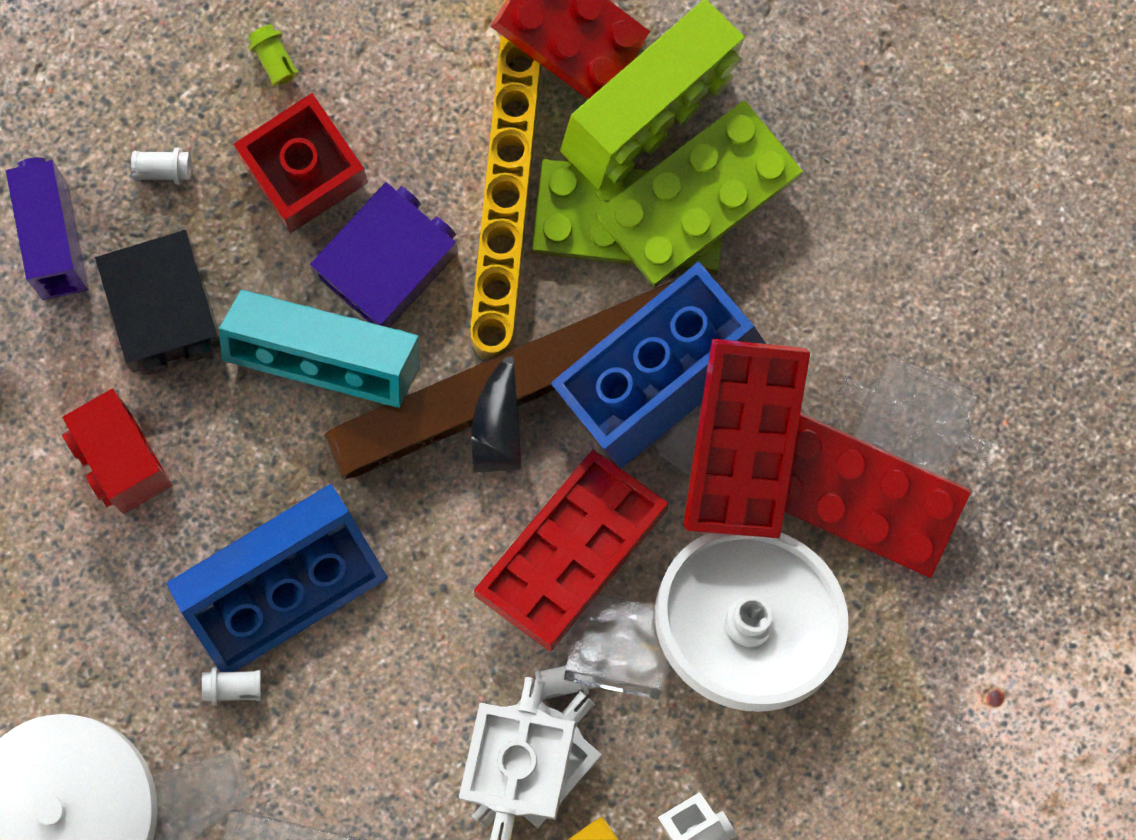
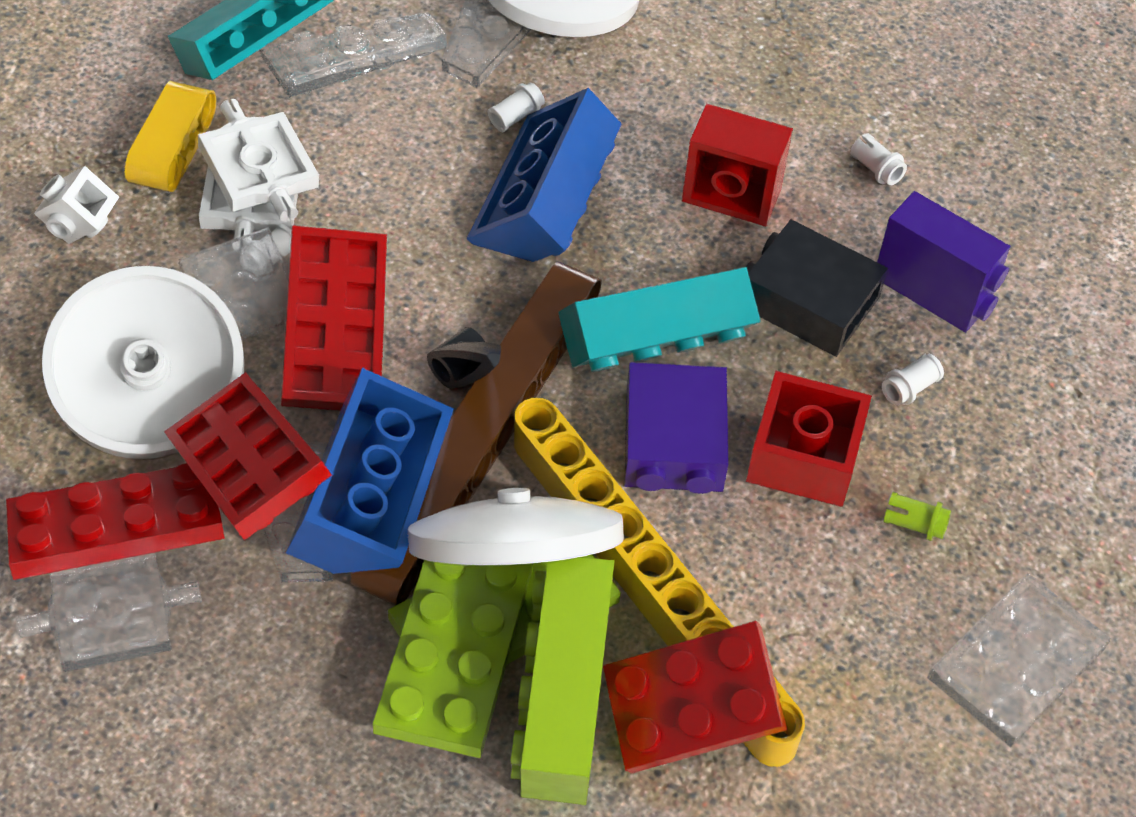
camera: 135 degrees right, 25 degrees down
(608, 209) = (515, 530): none -> white dish

